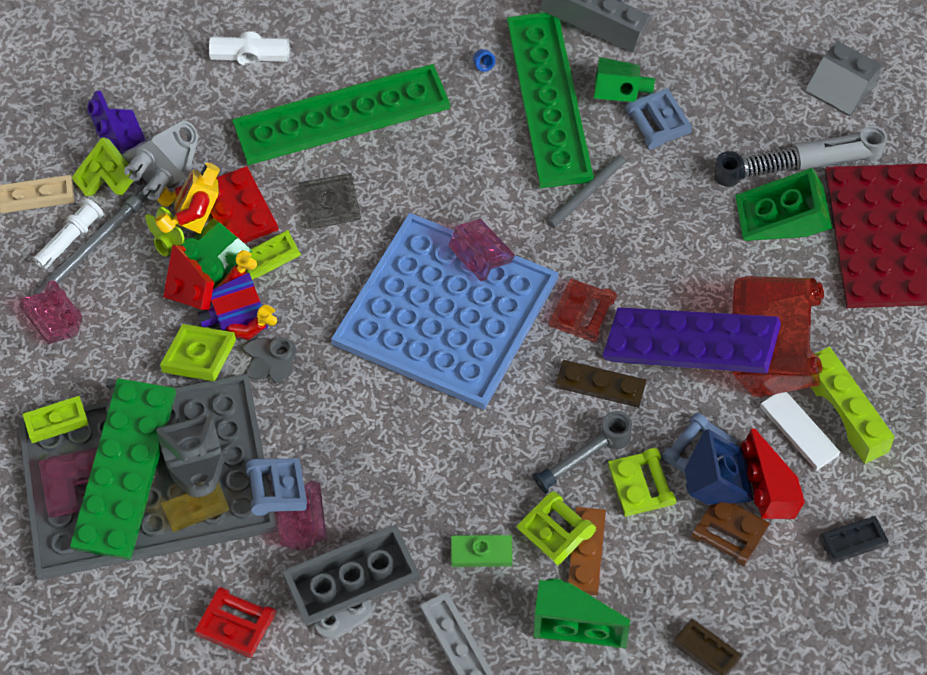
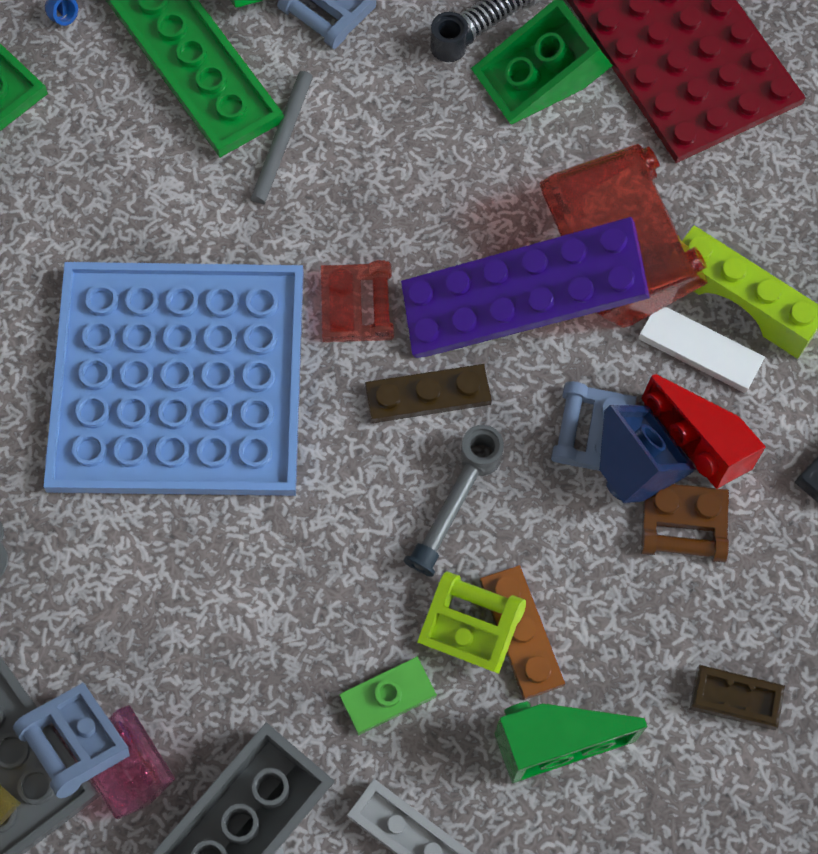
camera: 30 degrees left, 10 degrees up
(479, 248) = (186, 275): clear pink bracket -> none
(632, 485) = (535, 516): lime plate -> none

